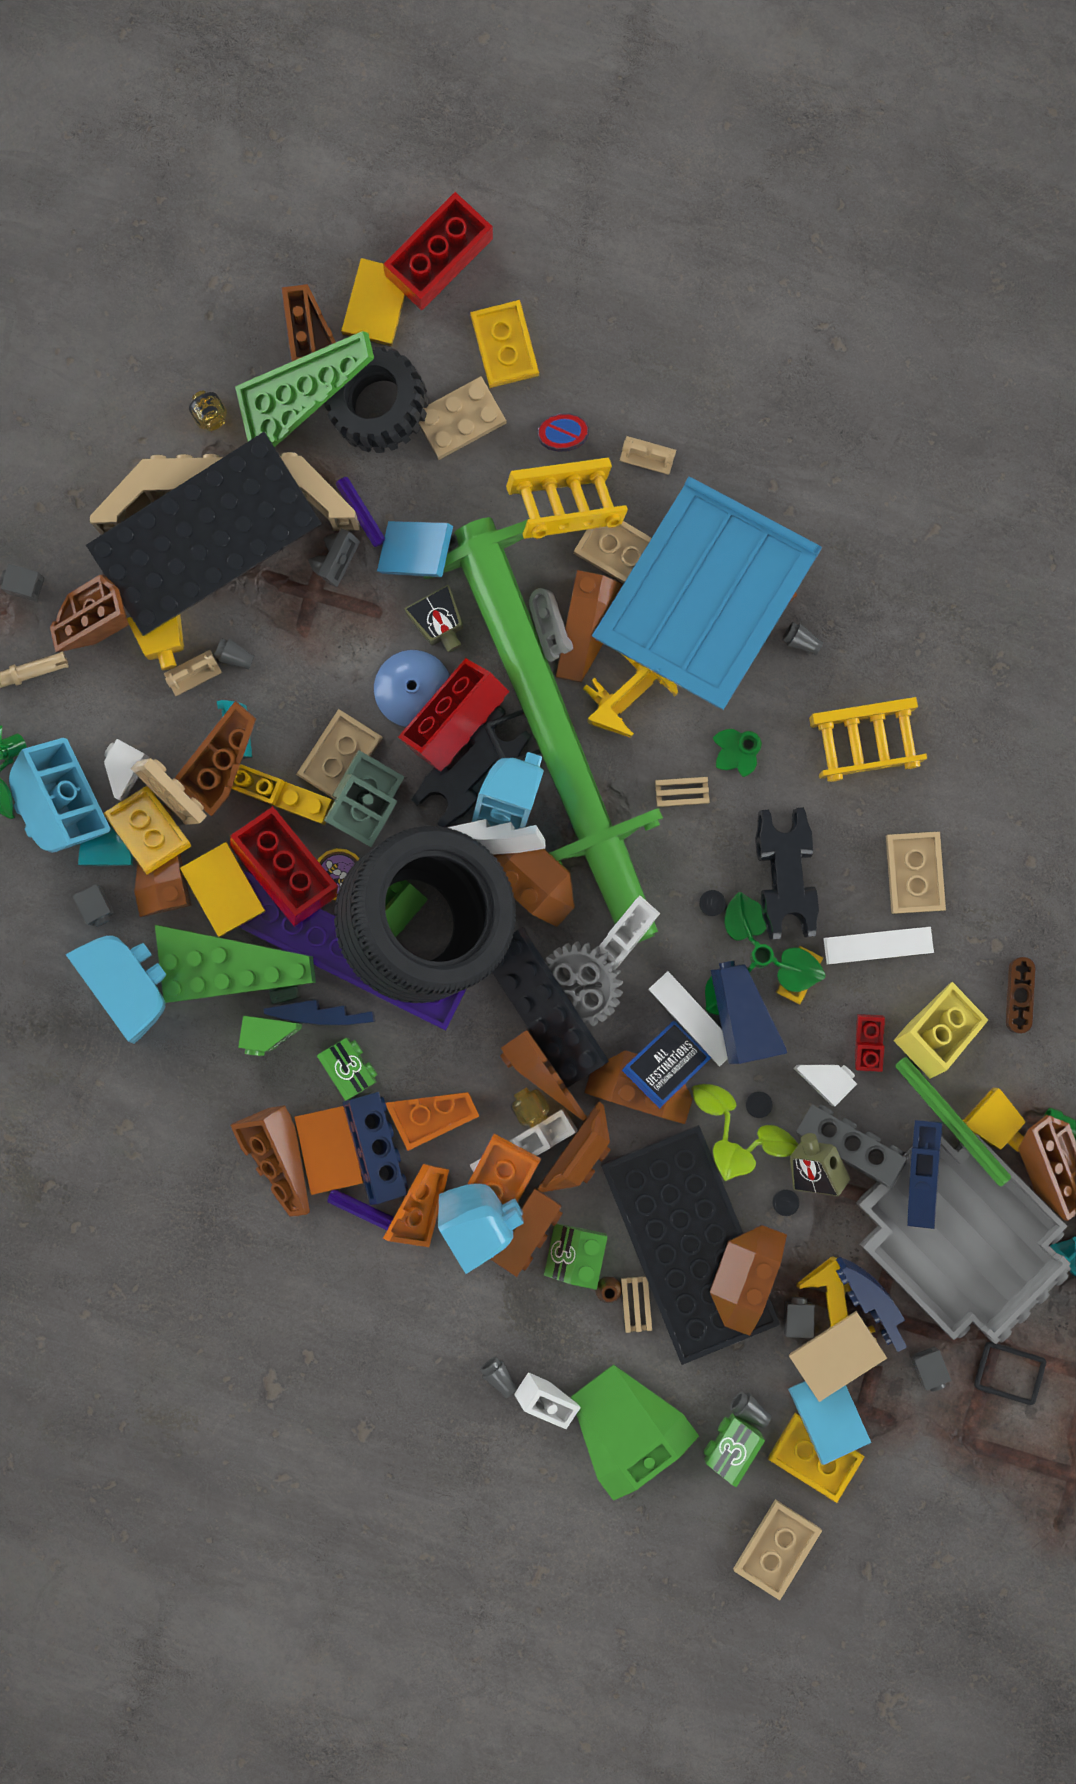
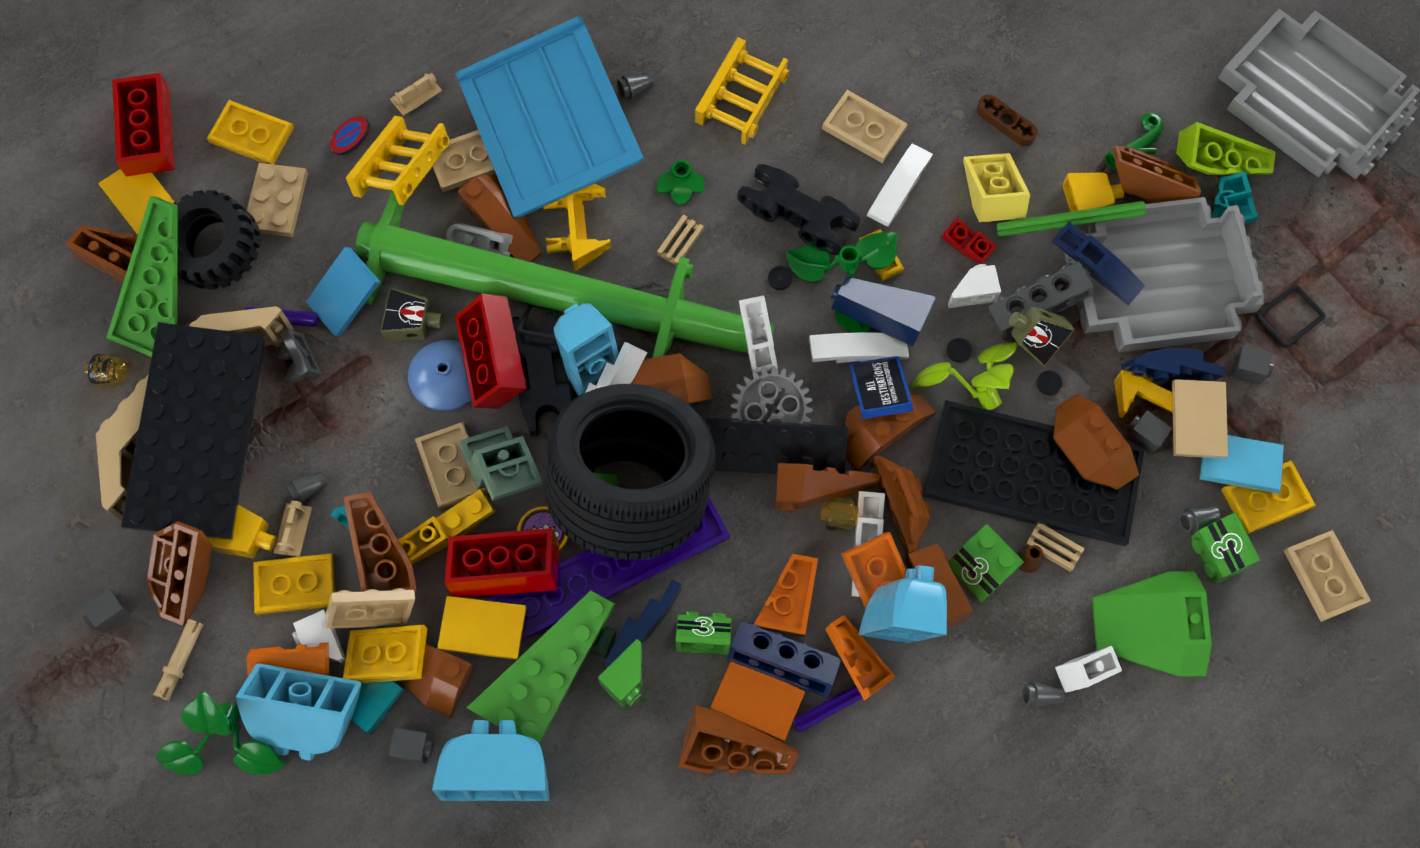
camera: 55 degrees left, 15 degrees down
(91, 766) = (301, 658): none -> orange wing
(152, 710) = (293, 583): none -> yellow tile

